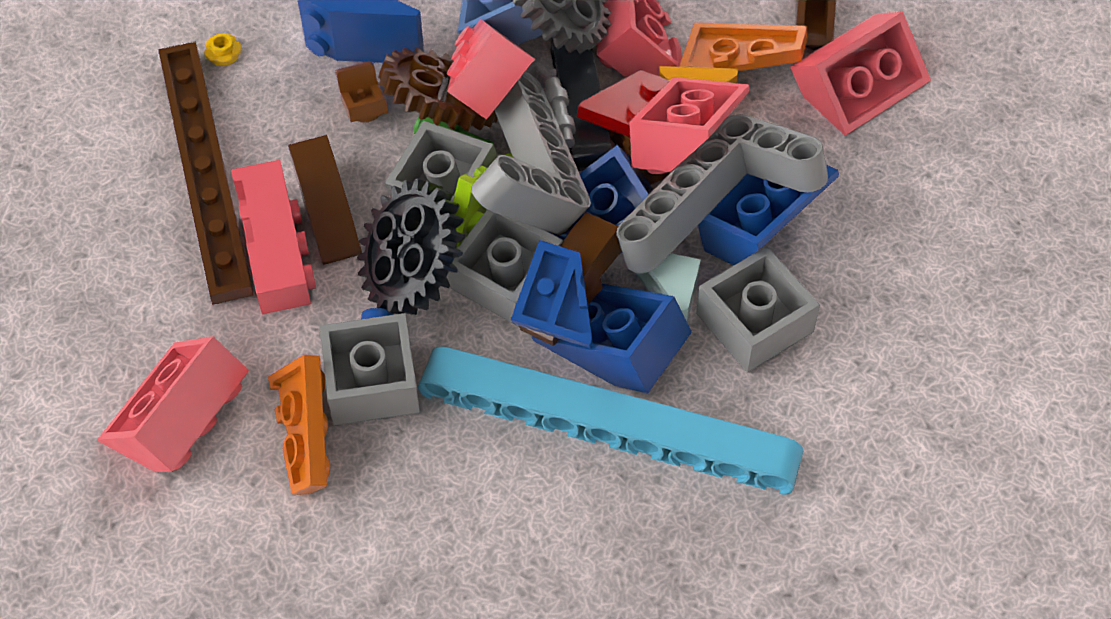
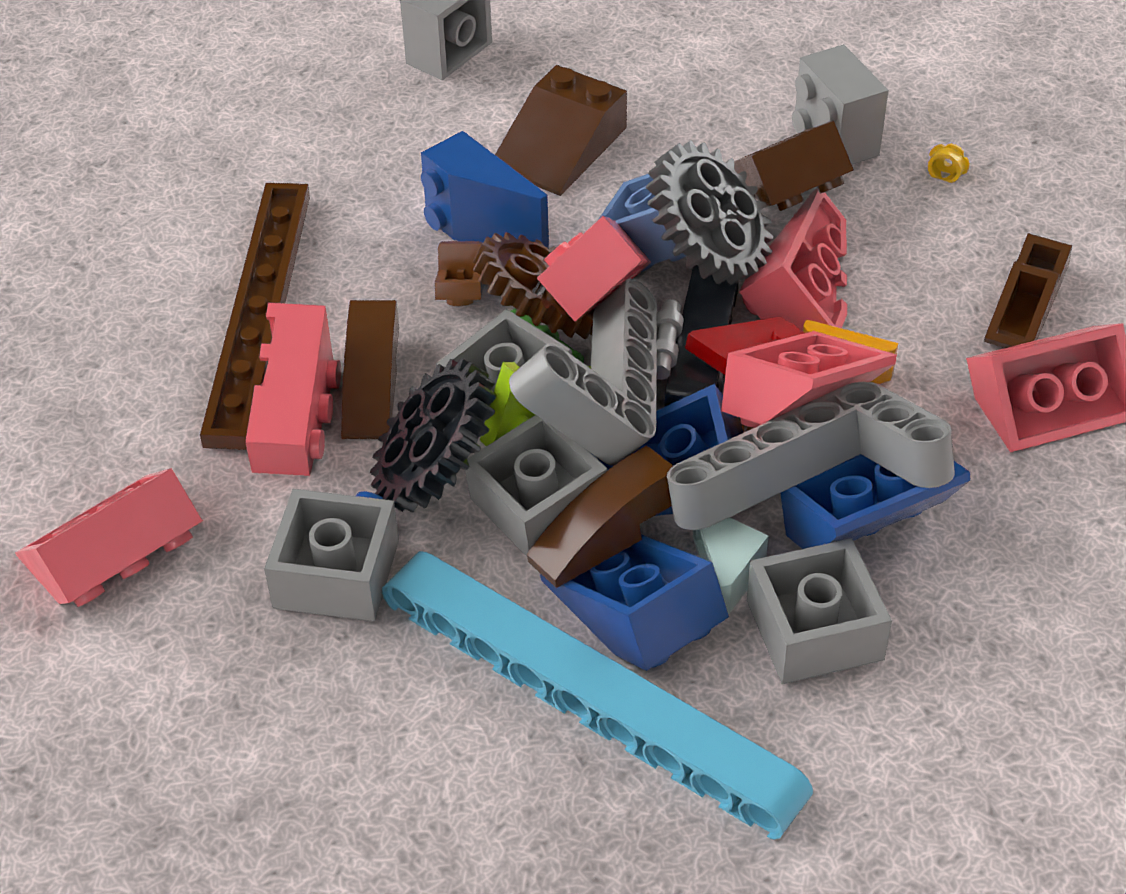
camera: 20 degrees right, 10 degrees down
(227, 54) = (335, 200): yellow plate -> none
(301, 411) = (247, 550): orange wing -> none
(555, 296) = (571, 525): blue wing -> none
(743, 45) = (920, 323): orange wing -> none

